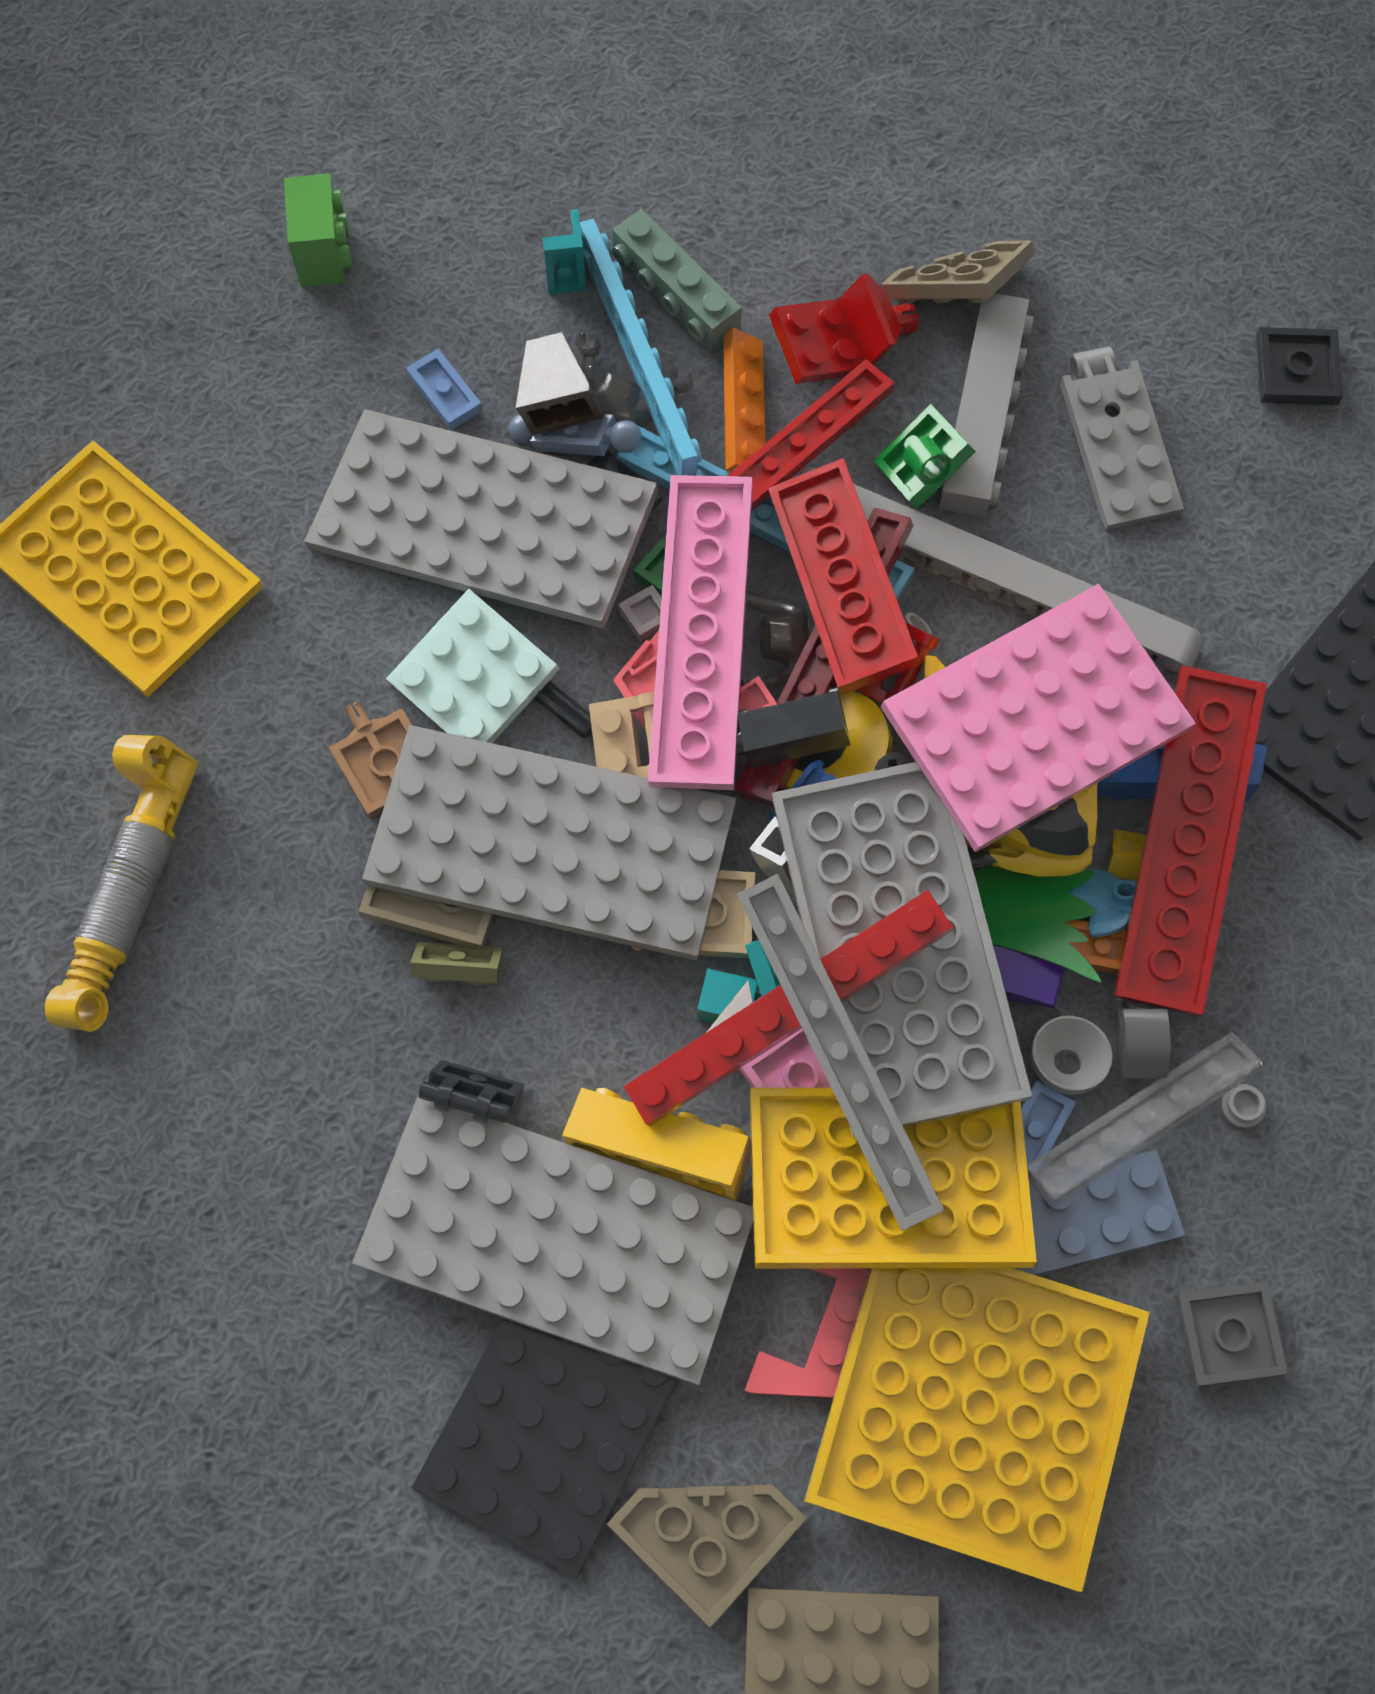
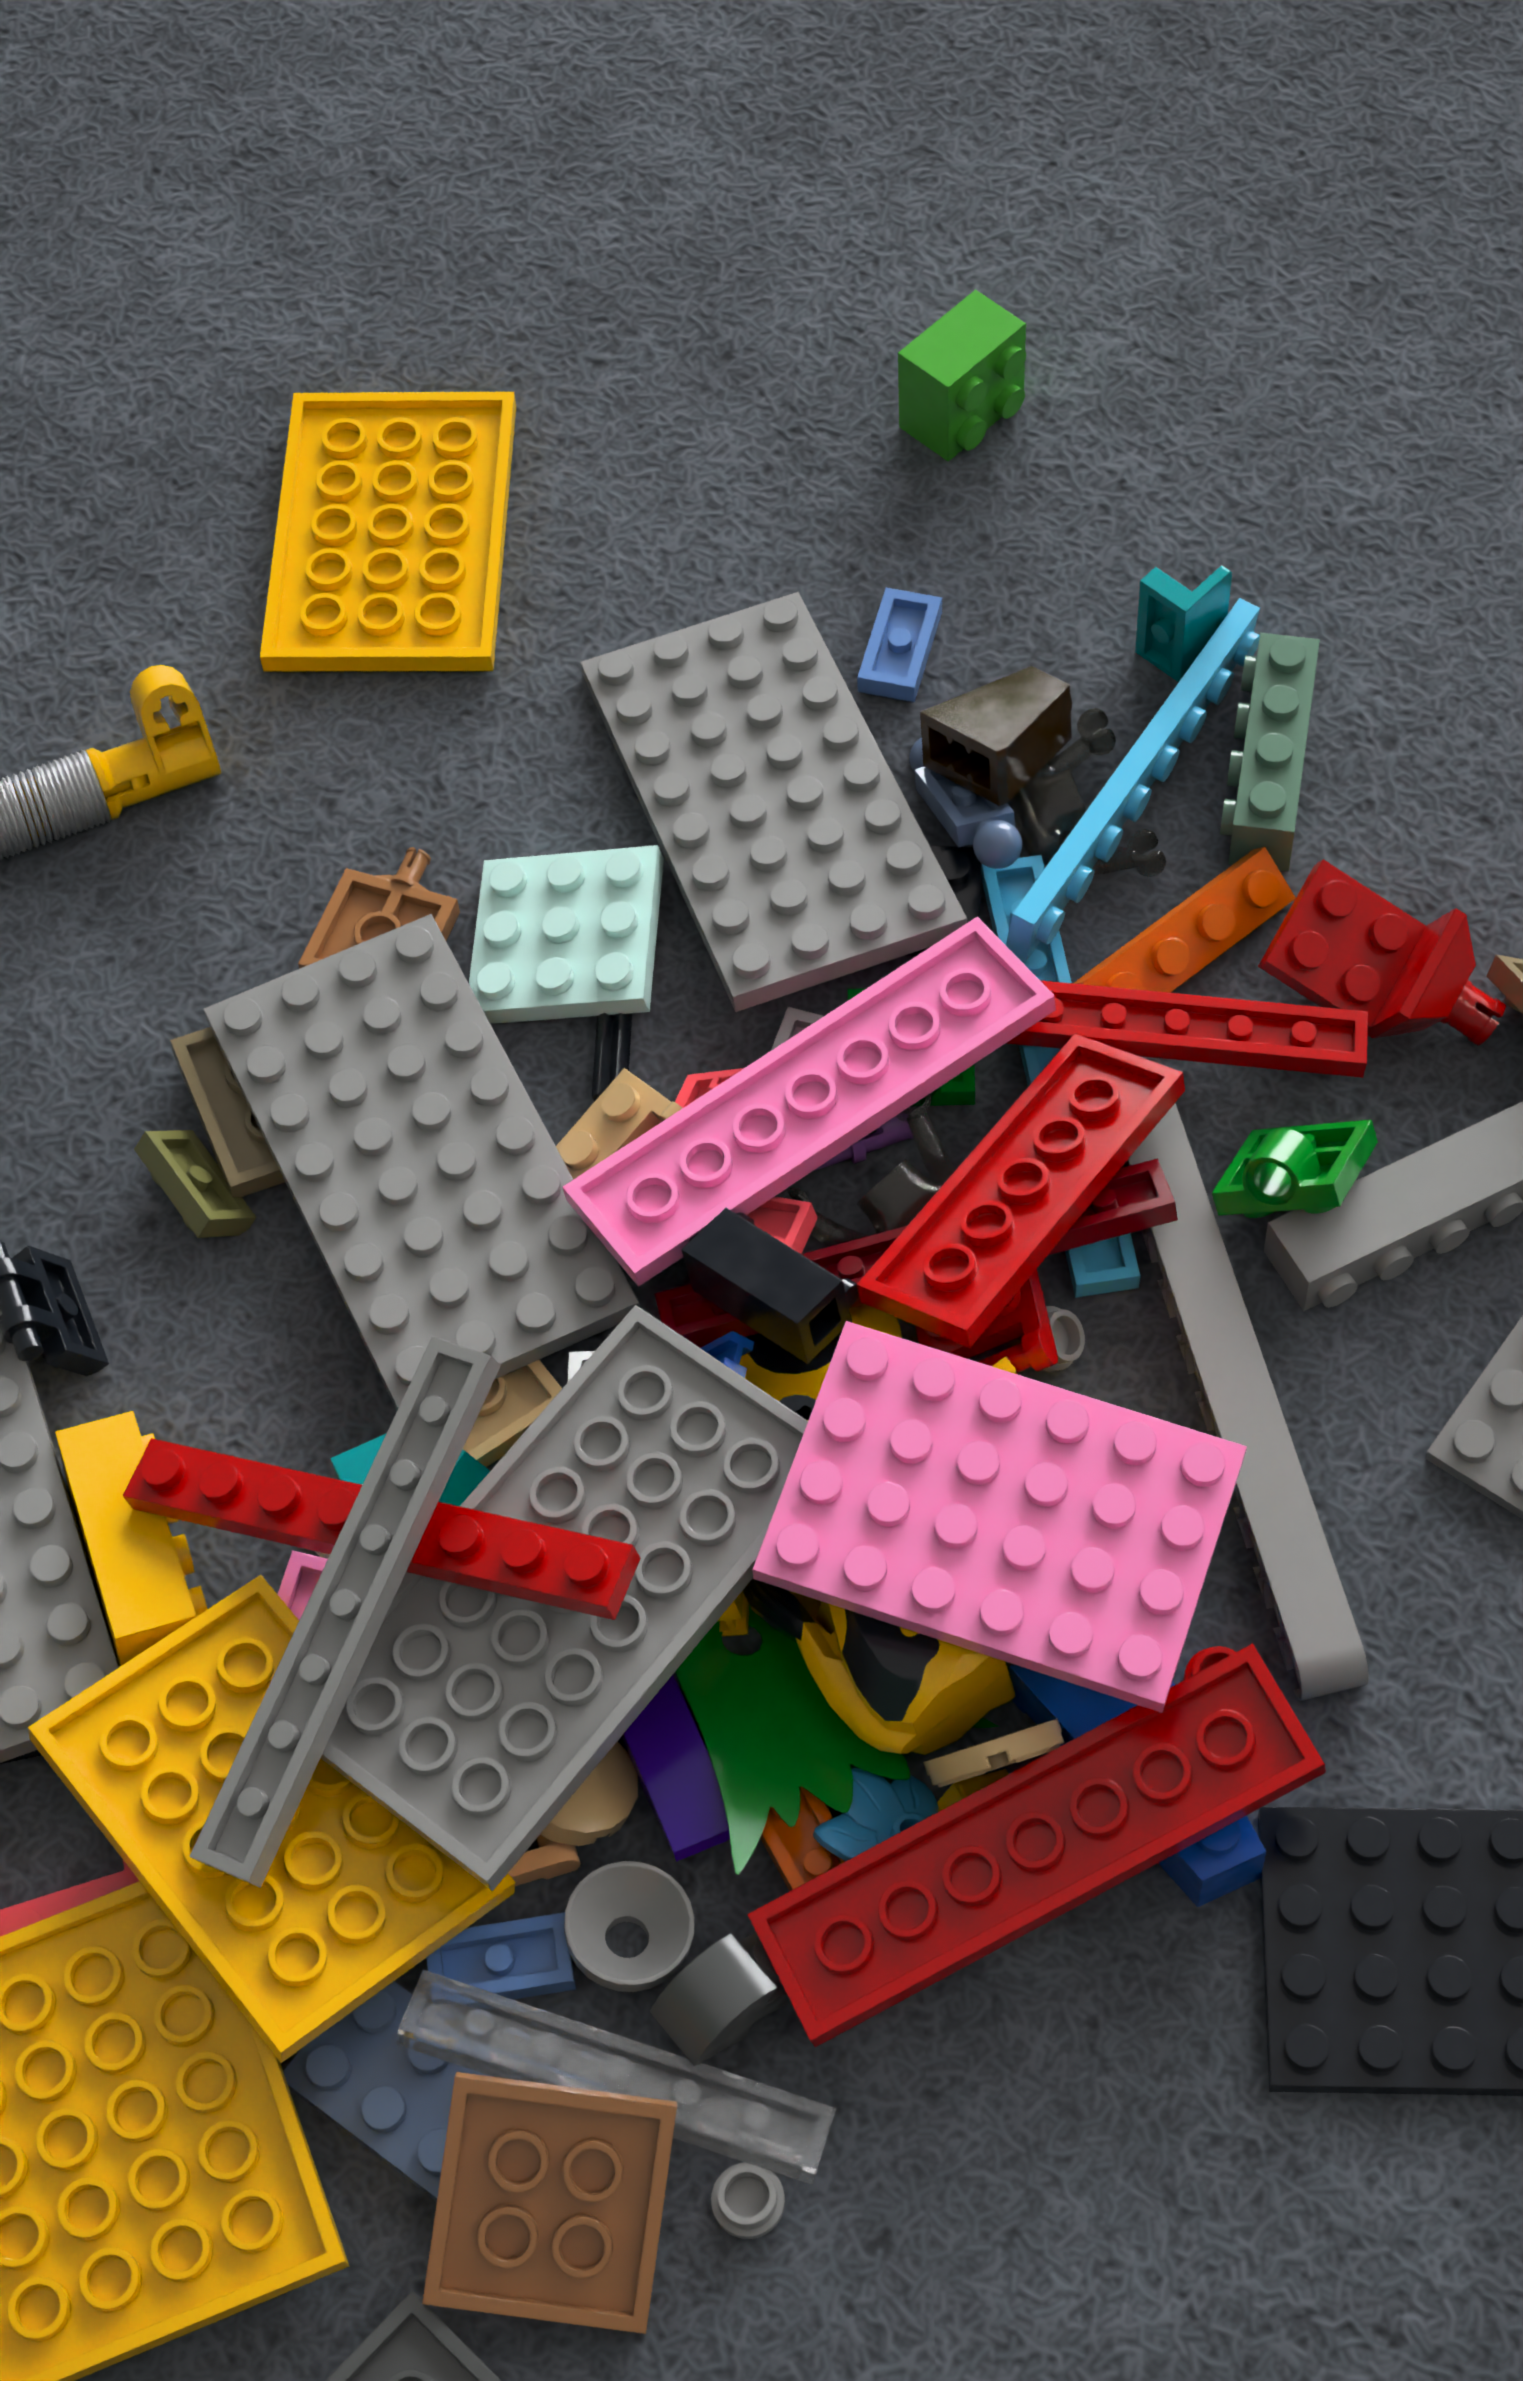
camera: 55 degrees right, 10 degrees down
(1122, 822) = (994, 1753): none -> tan tile
(1191, 1193) = (550, 2203): none -> medium nougat plate

